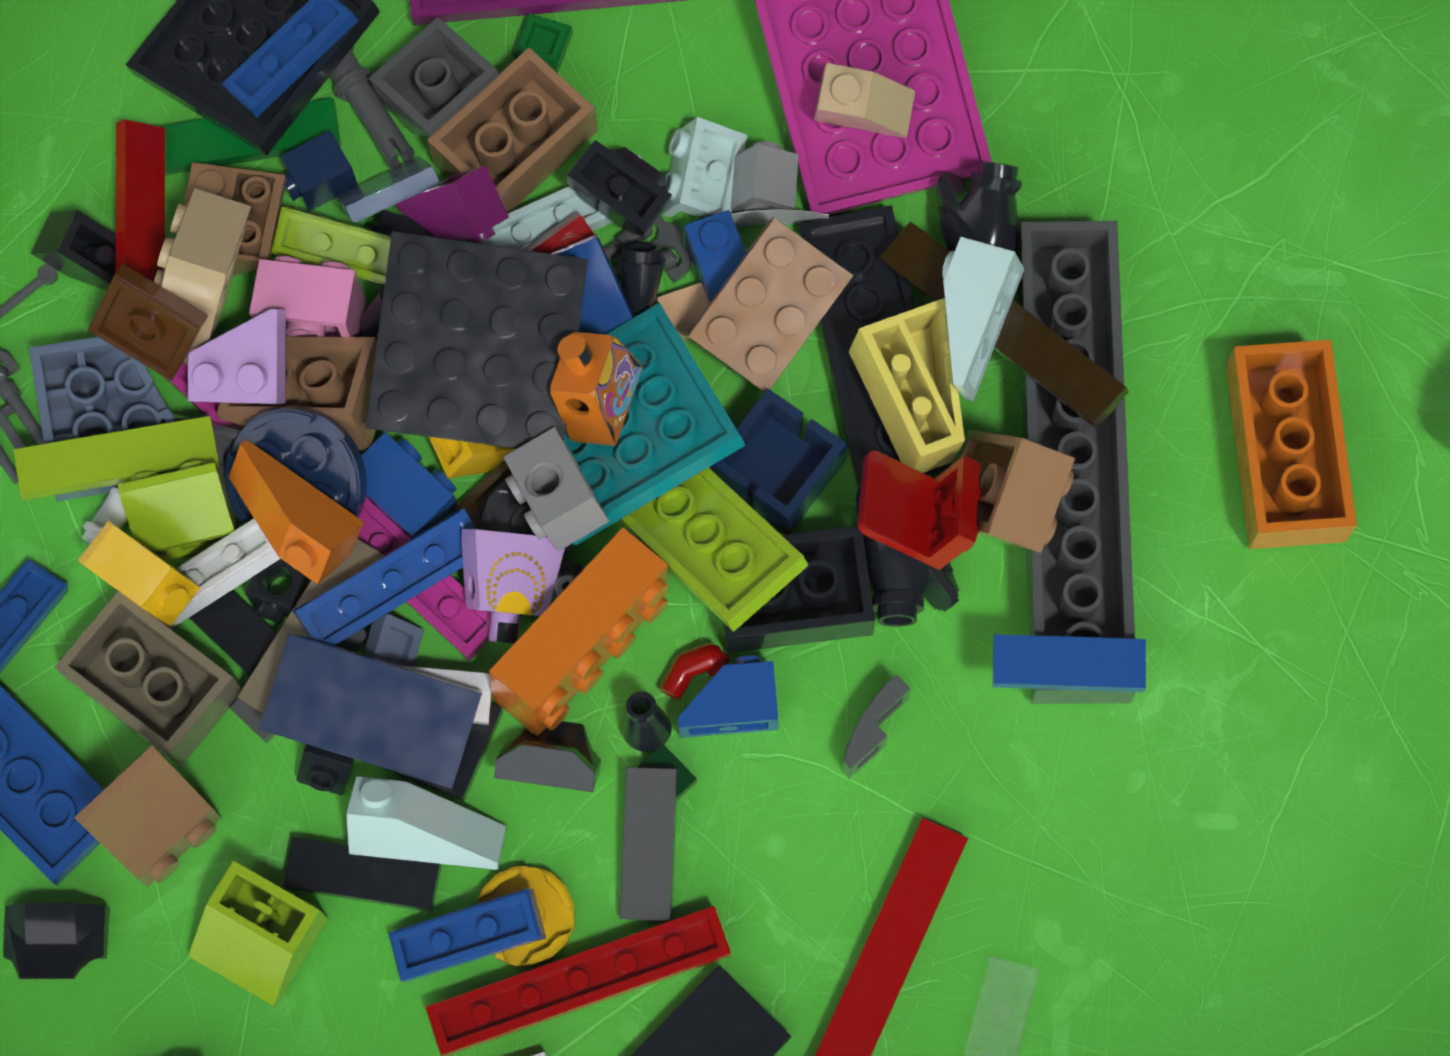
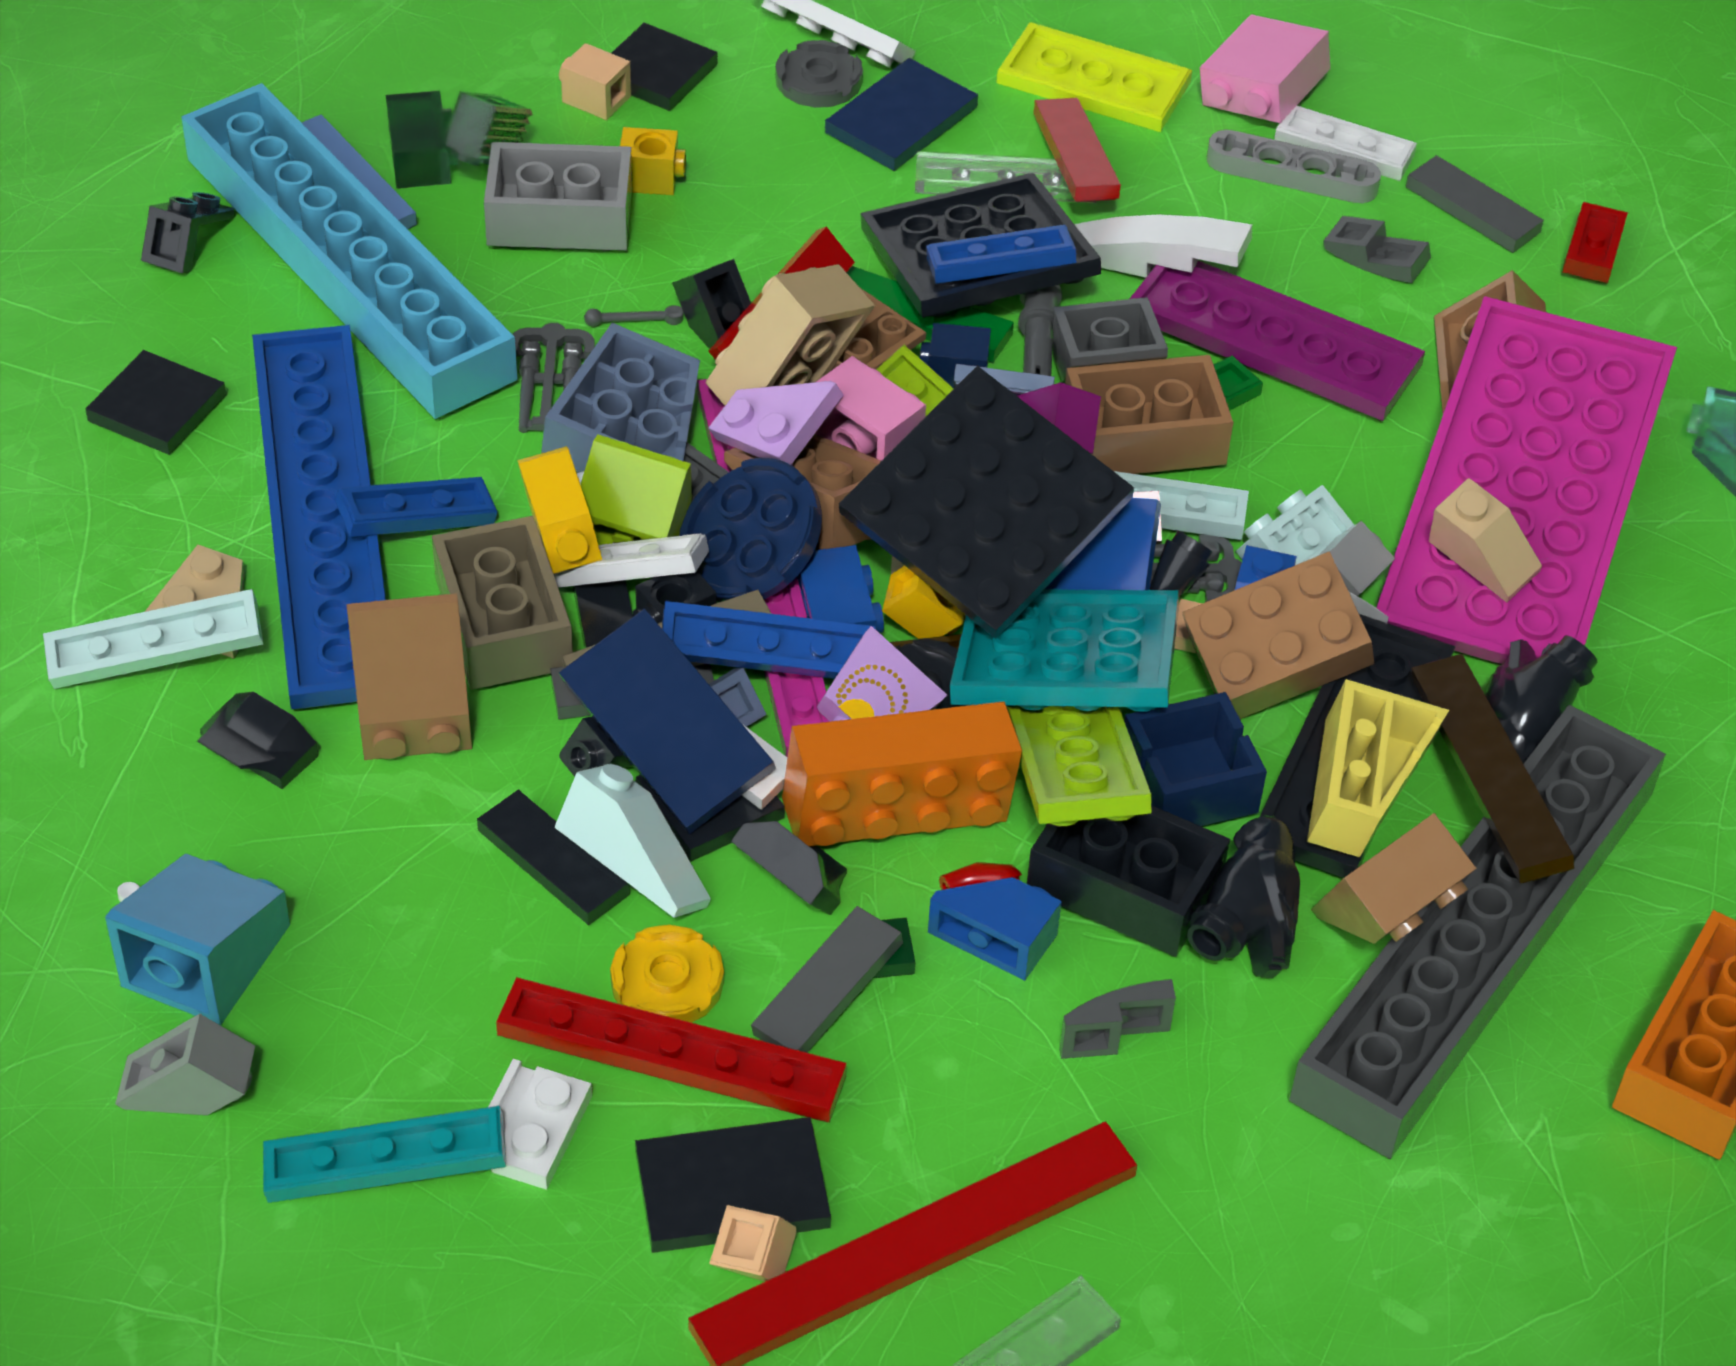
camera: 30 degrees right, 25 degrees down
(112, 457) = (586, 414): lime tile -> none
(147, 322) = (721, 343): reddish brown tile -> none
(255, 933) = (423, 830): lime slope -> none
(294, 516) = (726, 544): orange slope -> none
(467, 935) = (602, 949): blue tile -> none
(555, 490) = (965, 641): light grey brick -> none
(594, 386) = (1066, 588): orange torso -> none
(620, 187) = (1207, 492): black slope -> none
(645, 723) = (904, 883): black cone -> none
(919, 513) = (1287, 841): red bracket -> none
(978, 295) = (1471, 726): light aqua slope -> none
(1069, 663) = (1348, 1052): blue tile -> none

